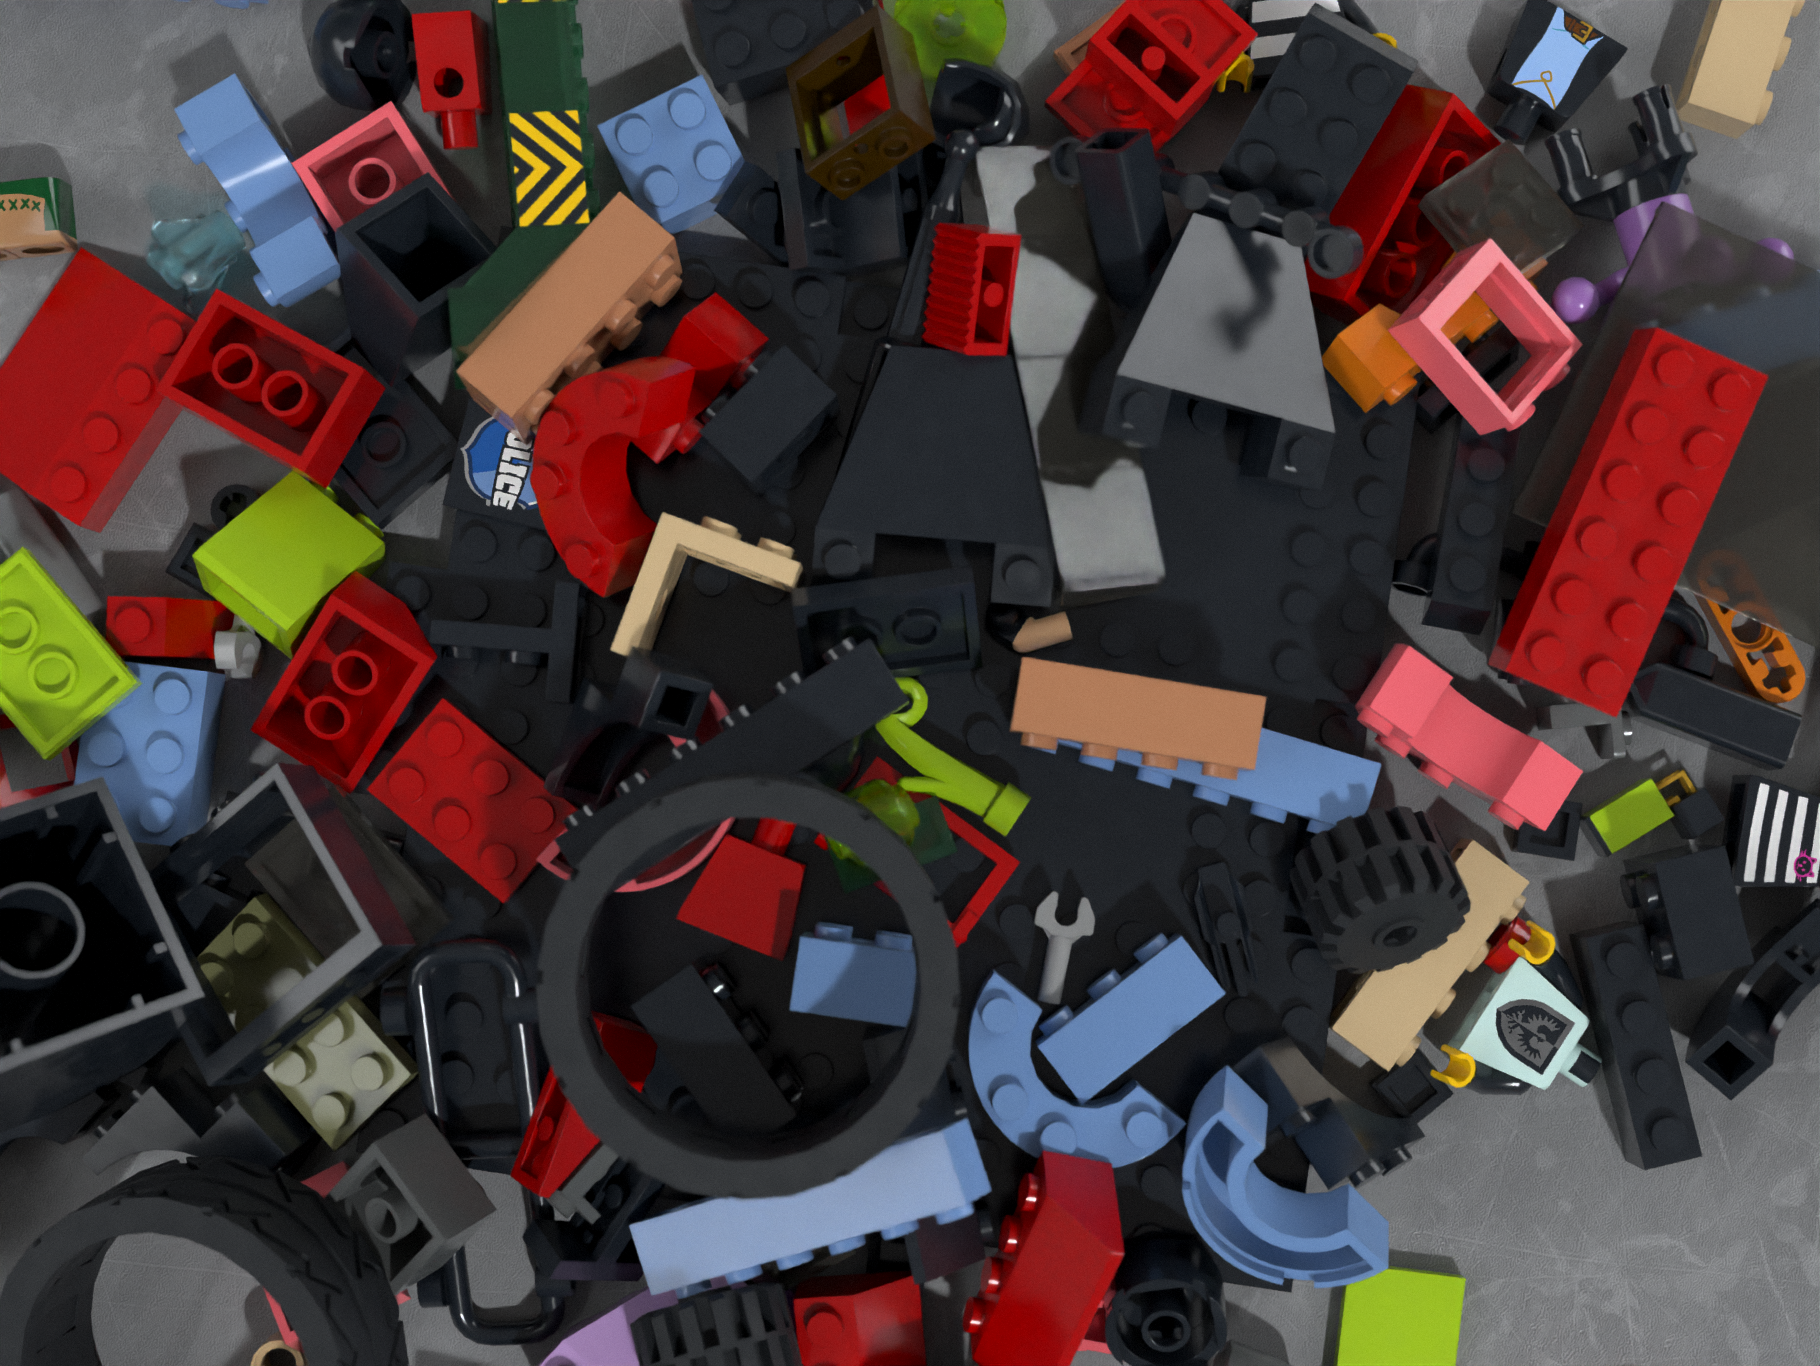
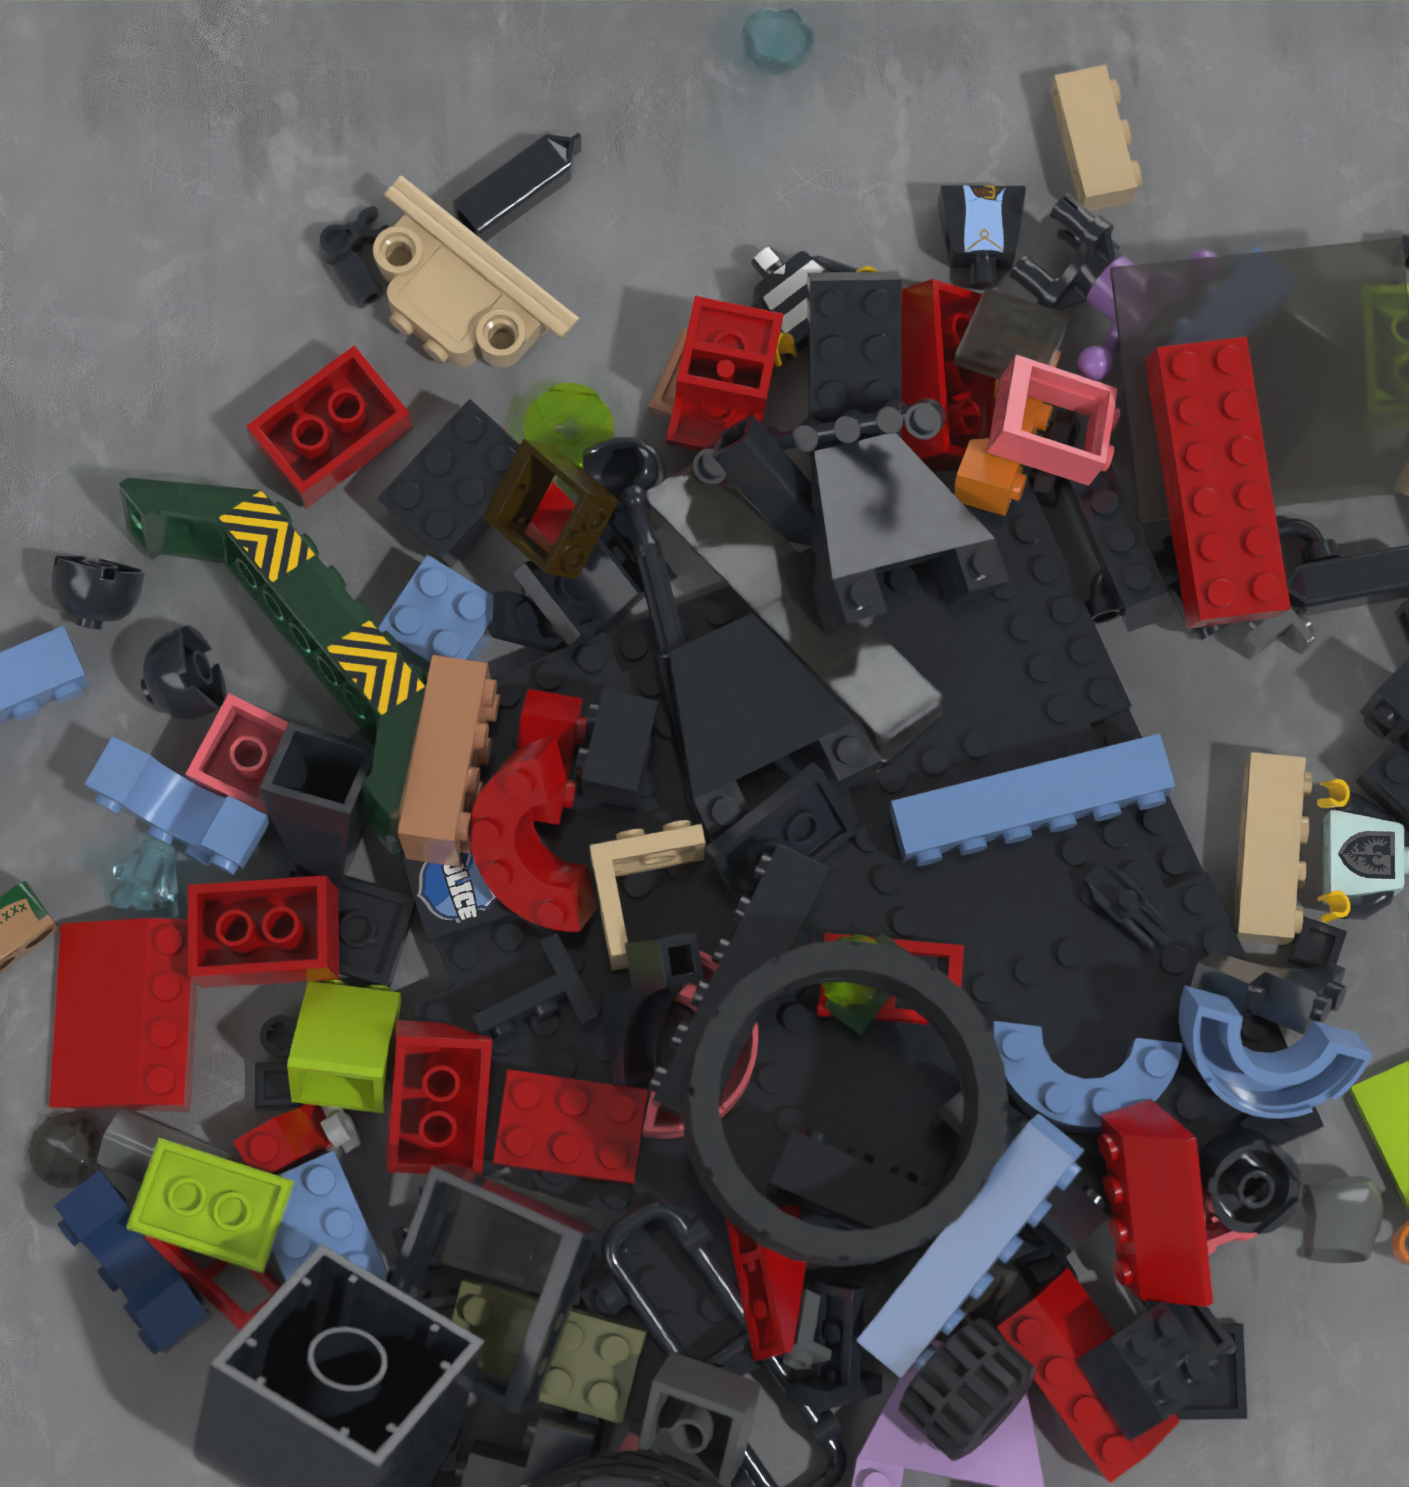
camera: 40 degrees left, 10 degrees down
(451, 48) = (244, 636): red torso -> none
(750, 890) = (796, 1071): red torso -> none
(855, 975) = (904, 1079): medium blue brick -> none
(944, 773) = (882, 915): lime plant -> none
(972, 288) = (700, 584): red brick -> none
(1024, 632) = (870, 793): arm -> none
(1059, 943) = (1023, 982): light grey bar -> none
(1127, 1015) = (1098, 1001): medium blue brick -> none
(1137, 715) = (981, 795): nougat brick -> none
(1379, 890) = (1211, 816): black wheel -> none
(1462, 744) = (1203, 695): coral brick -> none
(1500, 955) = (1317, 816): red tile -> none
(1557, 841) = (1295, 719): black tile -> none
(1643, 808) = (1350, 668): piece -> none
(1756, 670) = (1362, 538): orange beam -> none

